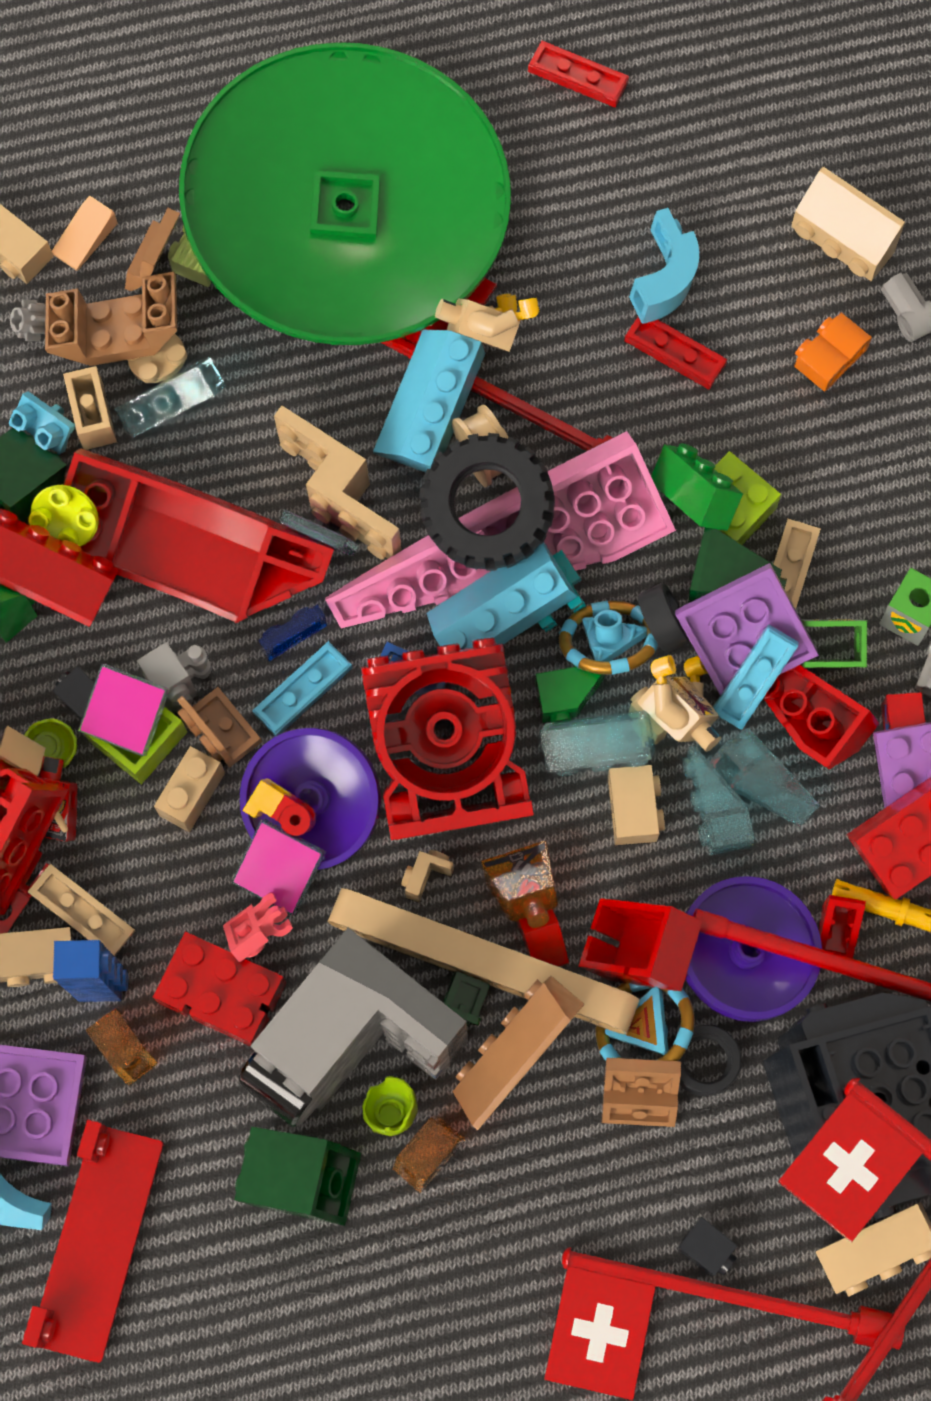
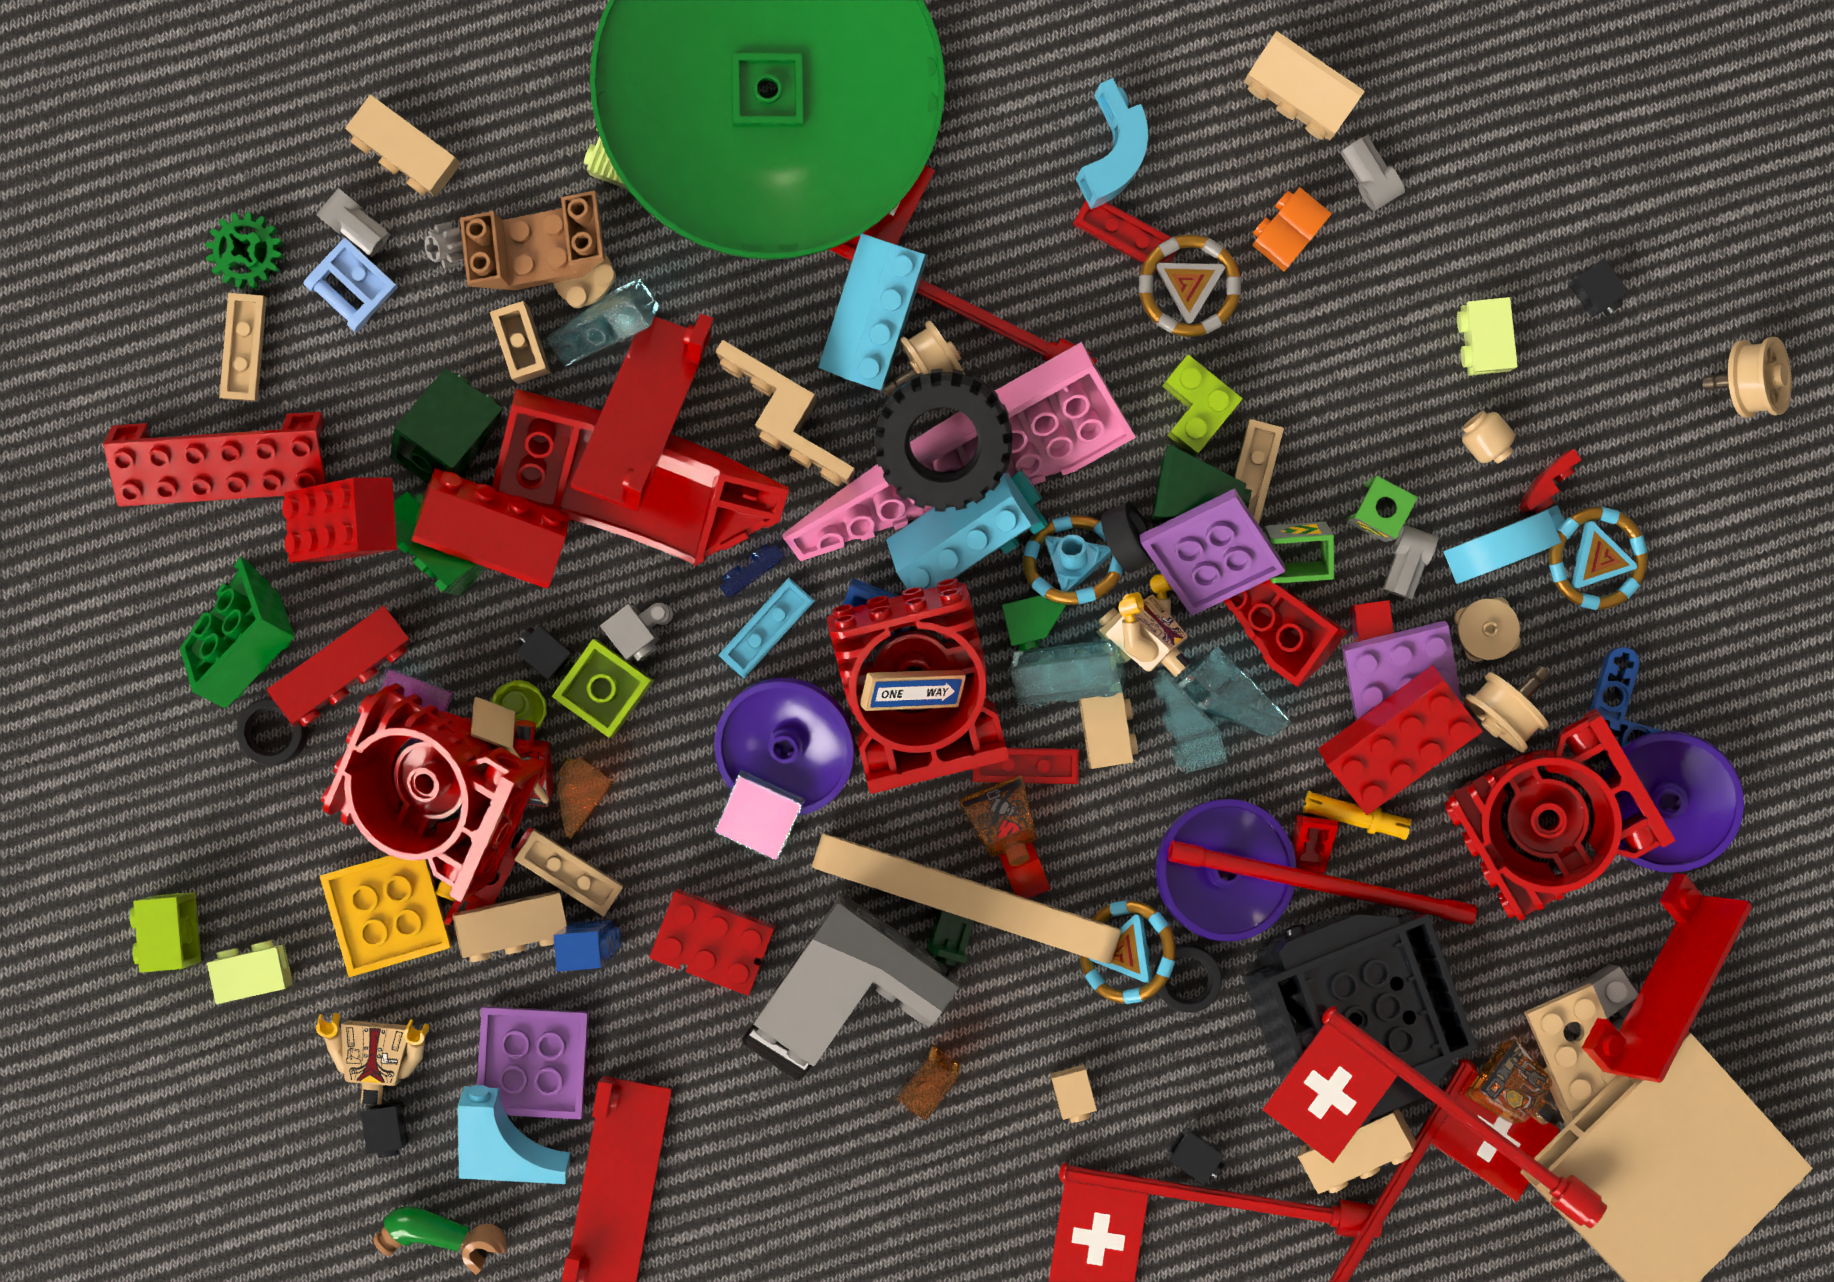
camera: 10 degrees left, 15 degrees up
(43, 422) = (472, 360): medium azure hips -> none
(65, 514) = (508, 469): neon yellow dish -> none
(85, 233) = (491, 138): light nougat slope -> none
(102, 834) = (580, 792): none -> clear orange slope
(121, 1046) = (620, 1001): clear orange torso -> none
(124, 709) = (592, 677): dark pink tile -> none
(151, 249) = (567, 161): medium nougat slope -> none
(189, 789) = (663, 743): tan brick -> none
(199, 469) = (641, 411): none -> red bracket
(222, 726) = (687, 677): medium nougat bracket -> none
(252, 926) = (740, 880): coral plate -> none
(293, 813) = (759, 762): leg -> none
(297, 1175) = (803, 1117): dark green slope -> none
(319, 533) = (770, 468): clear light blue tile -> none
(390, 1107) = (886, 1044): lime hair -> none
(417, 876) = (895, 817): tan bracket -> none
(440, 738) = (912, 690): none -> tile
(488, 324) = (927, 227): tan torso -> none
(515, 1050) = (1006, 990): medium nougat slope -> none
(562, 837) = (1034, 766): none -> red tile
(581, 1172) = (1073, 1093): none -> tan brick
(641, 1092) = (1126, 1016): medium nougat slope -> none
(652, 946) = (1130, 881): red piece -> none
(696, 486) = (1155, 399): green brick -> none
(733, 394) = (1189, 285): none -> piece
(755, 676) = (1222, 595): medium azure tile -> none

